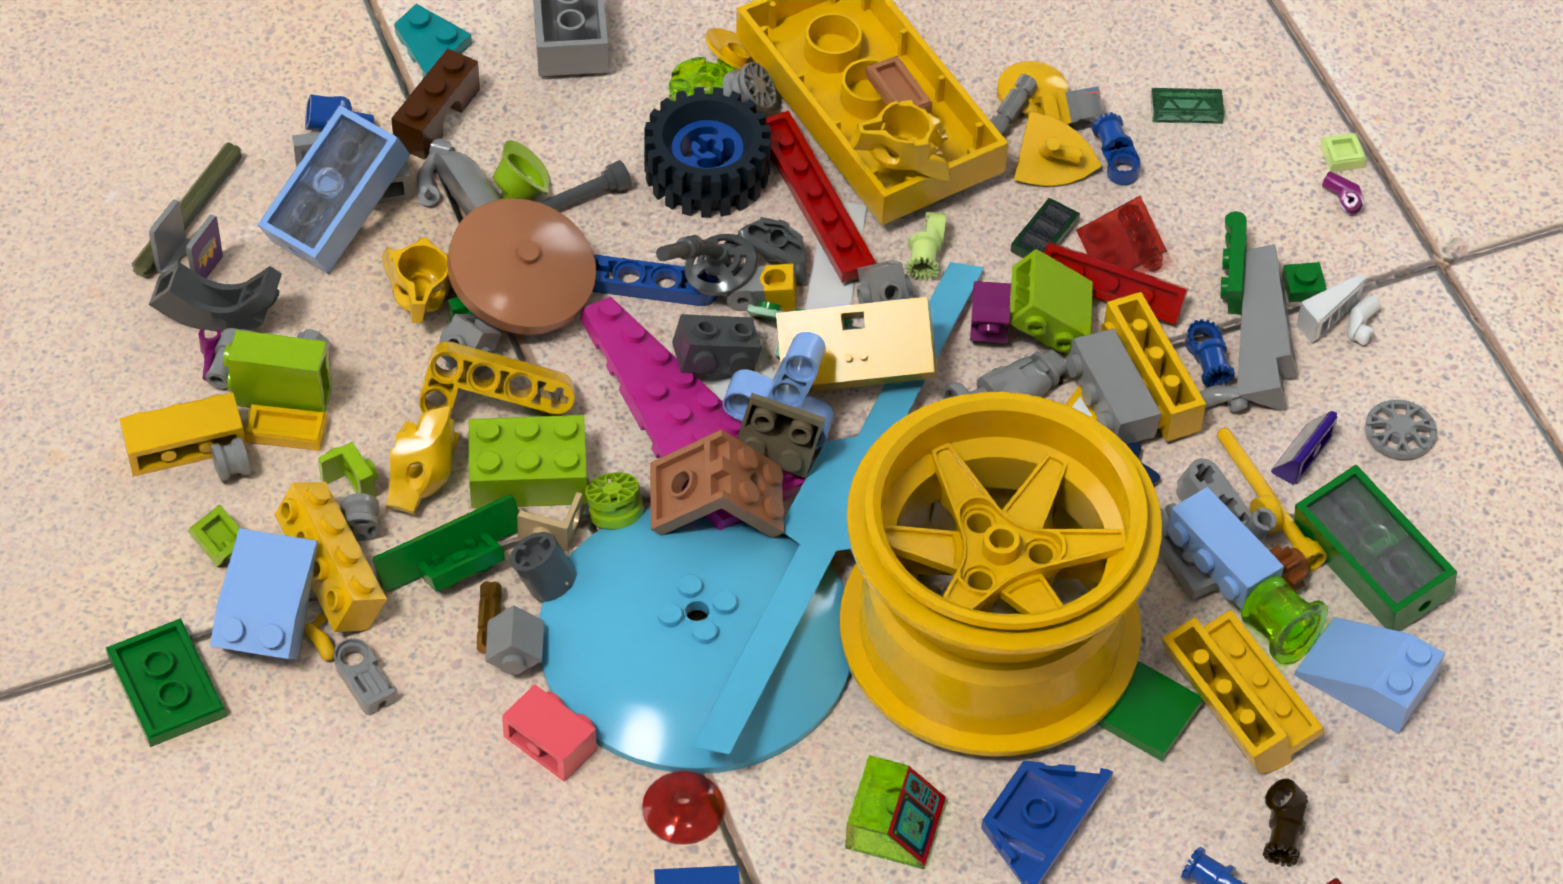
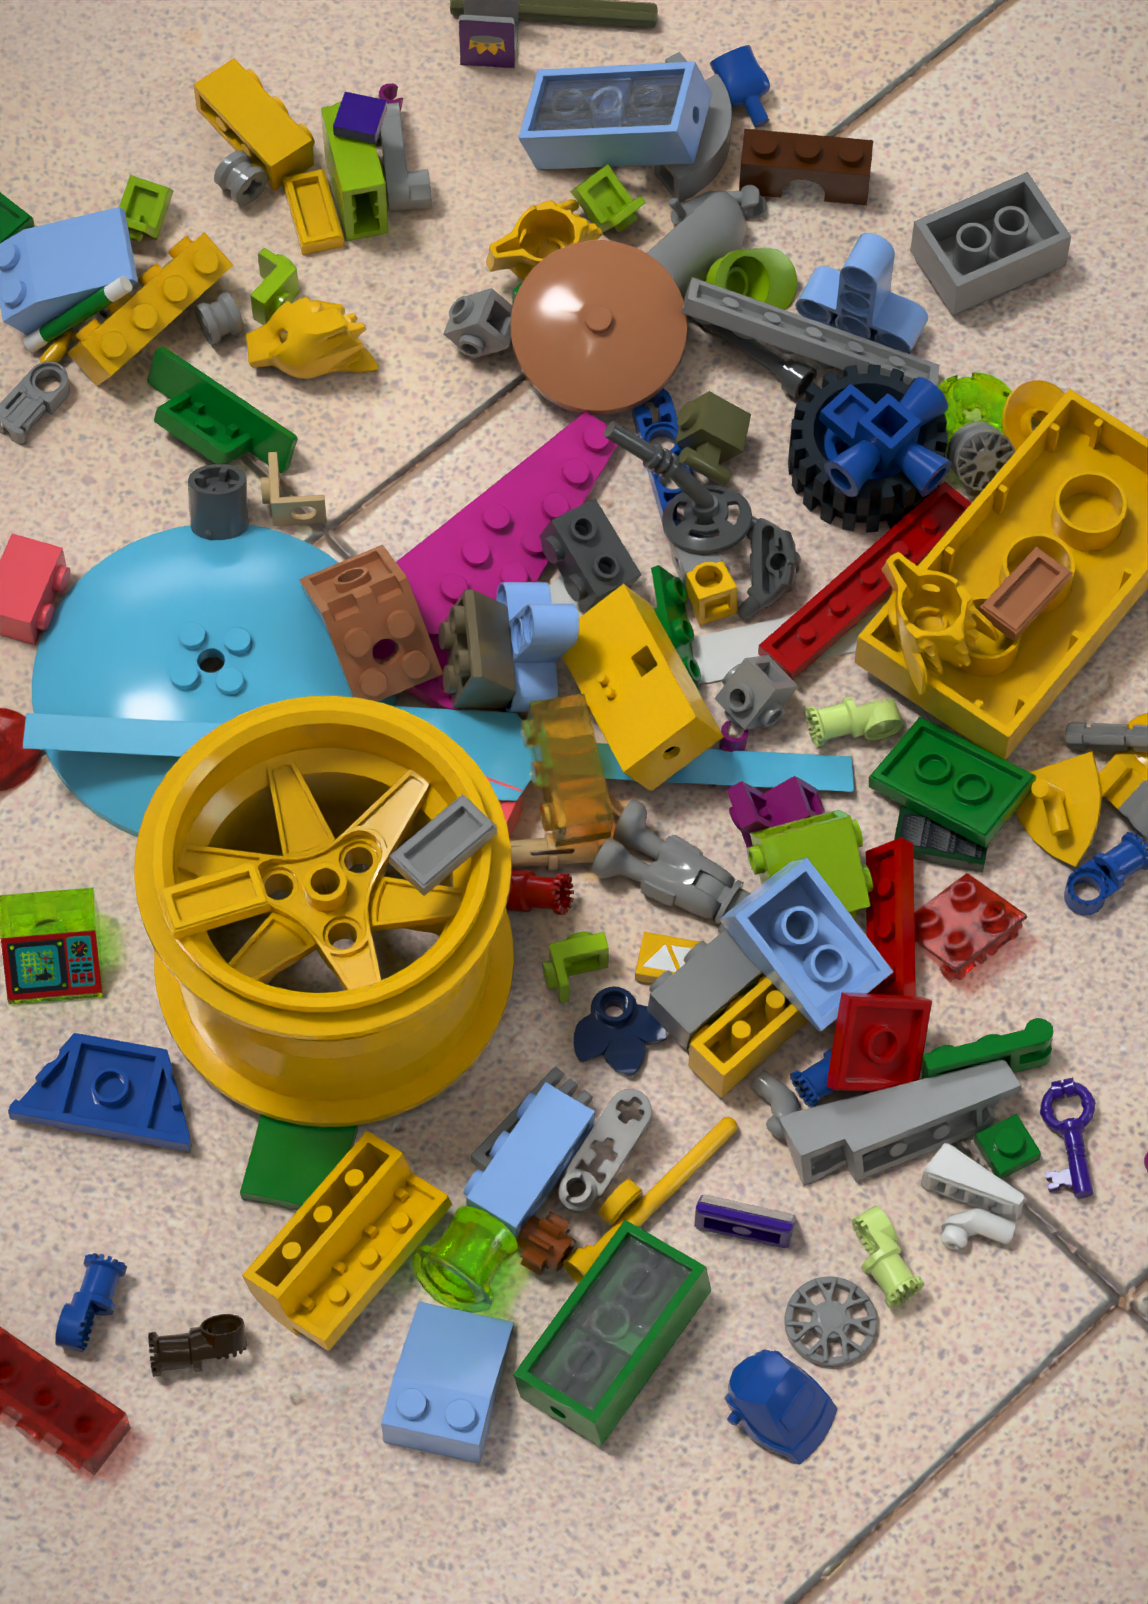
camera: 70 degrees right, 10 degrees up
(214, 305) = (431, 76): dark grey arch -> none
(257, 333) = (360, 117): none -> dark purple tile
(313, 602) = (77, 314): none -> green bar
(394, 231) = (607, 200): none -> lime bracket
(429, 36) = (908, 128): teal wing -> none
(488, 608) = (149, 484): pearl gold axle -> none
(499, 384) = (440, 362): yellow beam -> none
(514, 641) = (115, 513): light grey brick -> none
(529, 458) = (355, 439): lime brick -> none
(584, 106) = (861, 298): none -> light blue beam
(592, 152) = (798, 334): none -> light grey plate
(616, 502) = (338, 537): lime wheel -> none
(641, 234) = (711, 434): none -> olive brick
(727, 120) = (885, 437): none -> blue brick
(883, 401) = (568, 770): none -> clear yellow brick
(1007, 205) = (952, 781): none -> green tile
(1023, 583) = (214, 900): none -> yellow tile
(1037, 424) = (443, 845): none -> light grey tile
(1124, 310) = (805, 942): none -> light blue slope
(1210, 309) = (878, 1041): none -> red tile
(1306, 241) = (1071, 1130): none -> dark purple piece
(1366, 376) = (885, 1258): none -> yellowish green connector
(1458, 476) = (779, 1405): none -> blue helmet

